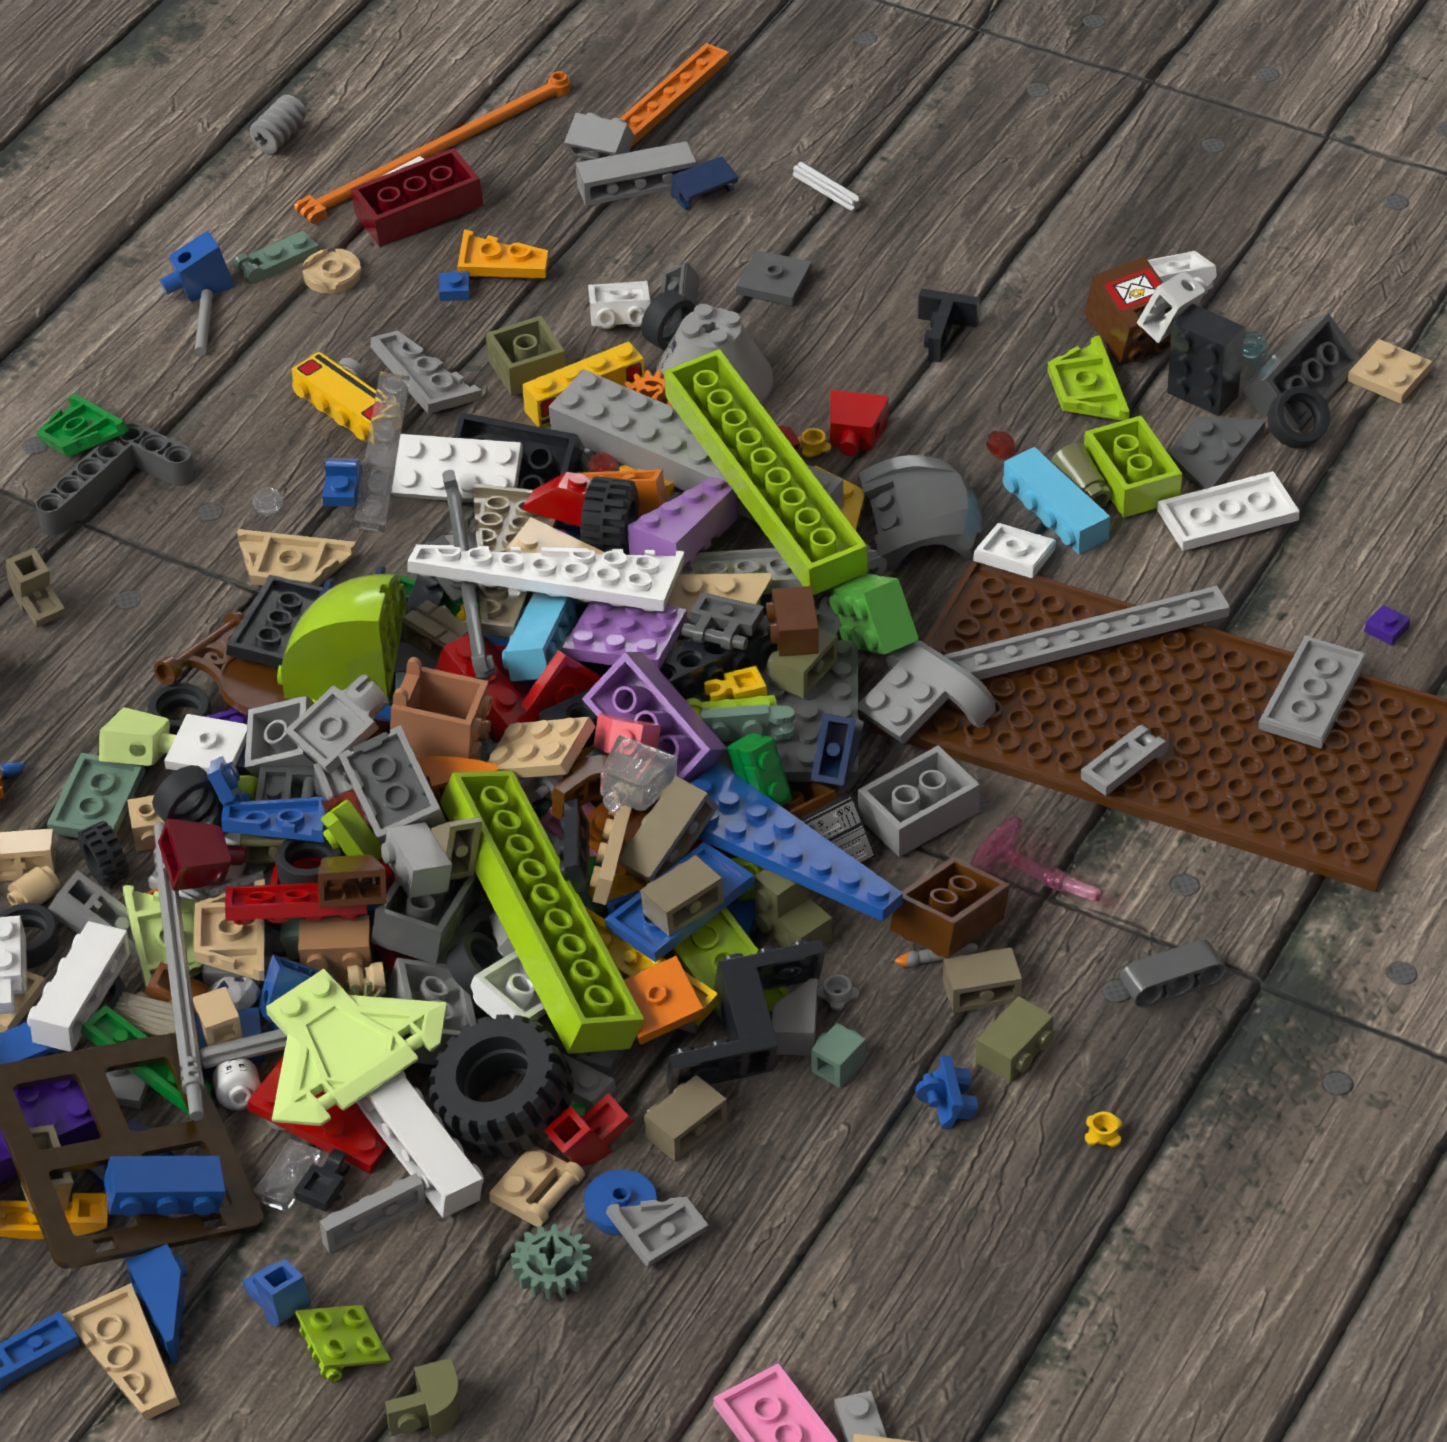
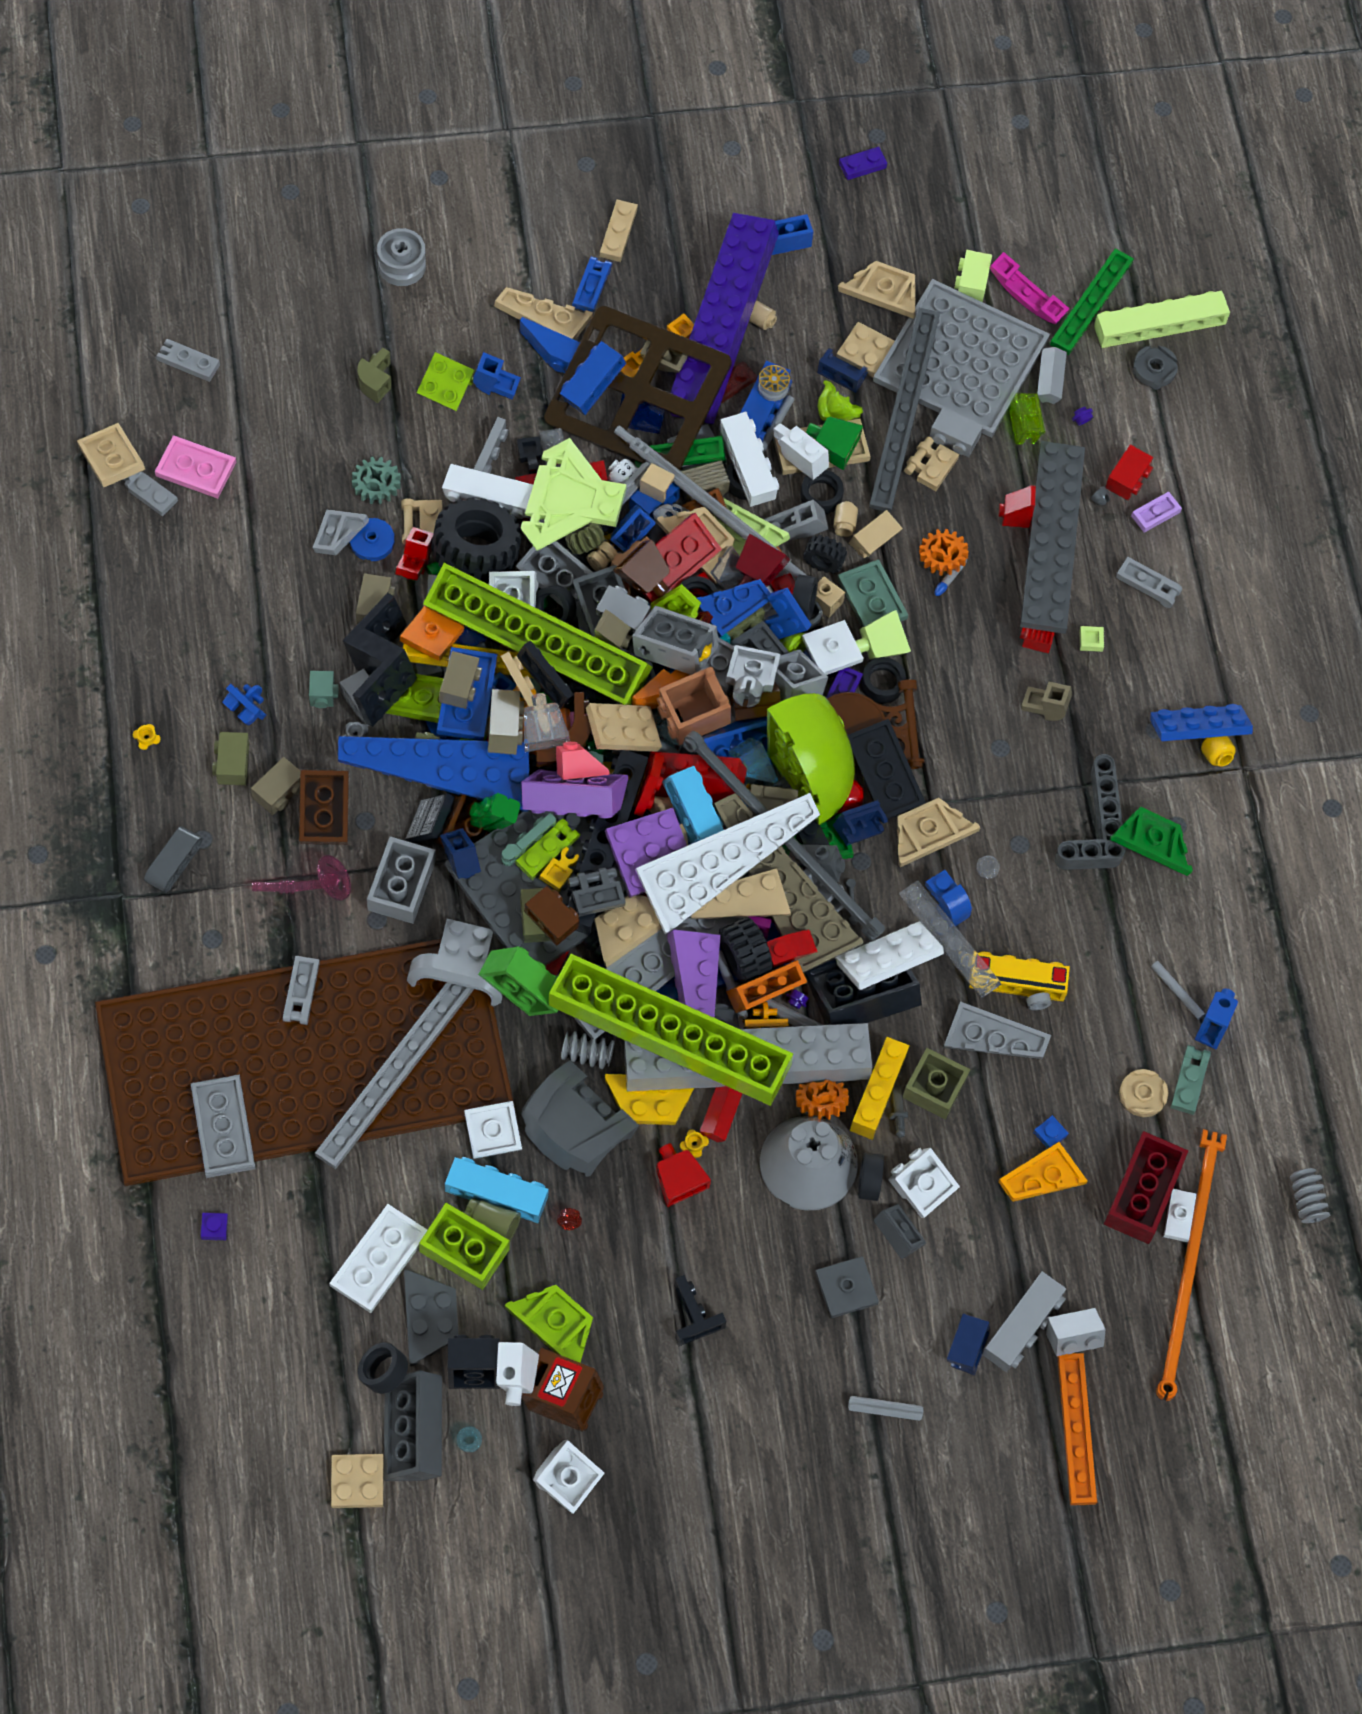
camera: 135 degrees right, 20 degrees up
(602, 463) = (807, 1014): clear red plate -> none

